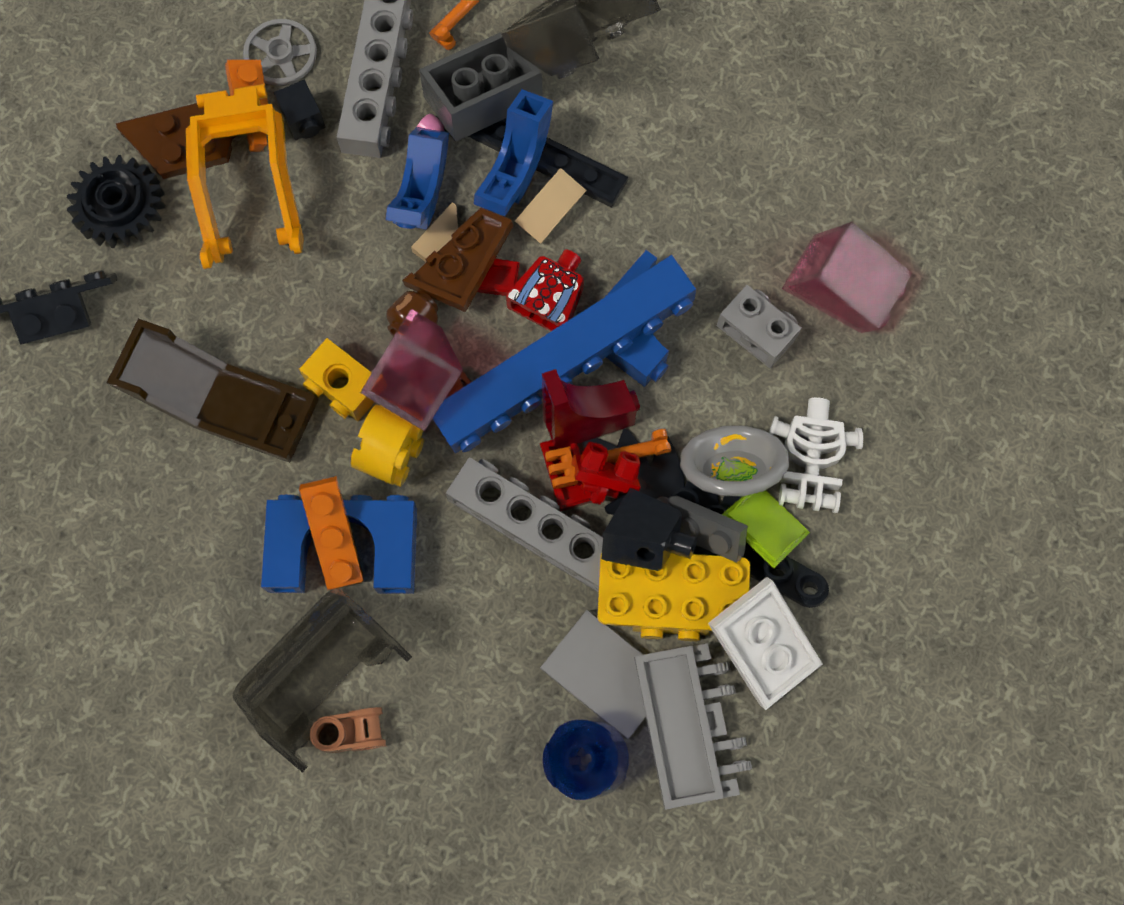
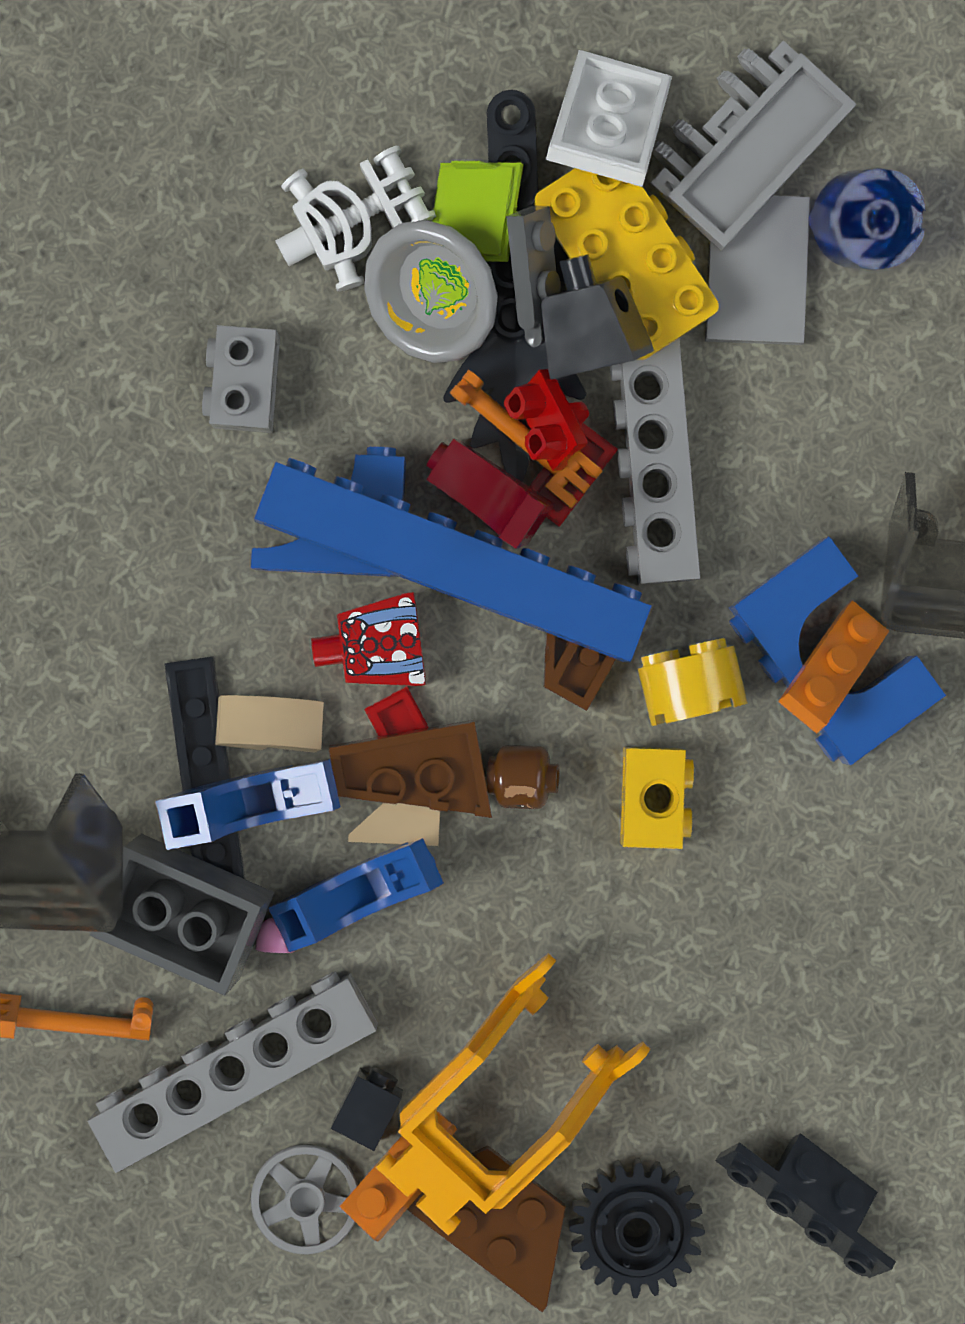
camera: 130 degrees left, 15 degrees up
(211, 393) = (775, 924): dark brown windscreen -> none
(414, 371) = (599, 708): clear pink slope -> none
(849, 278) = (111, 318): clear pink slope -> none

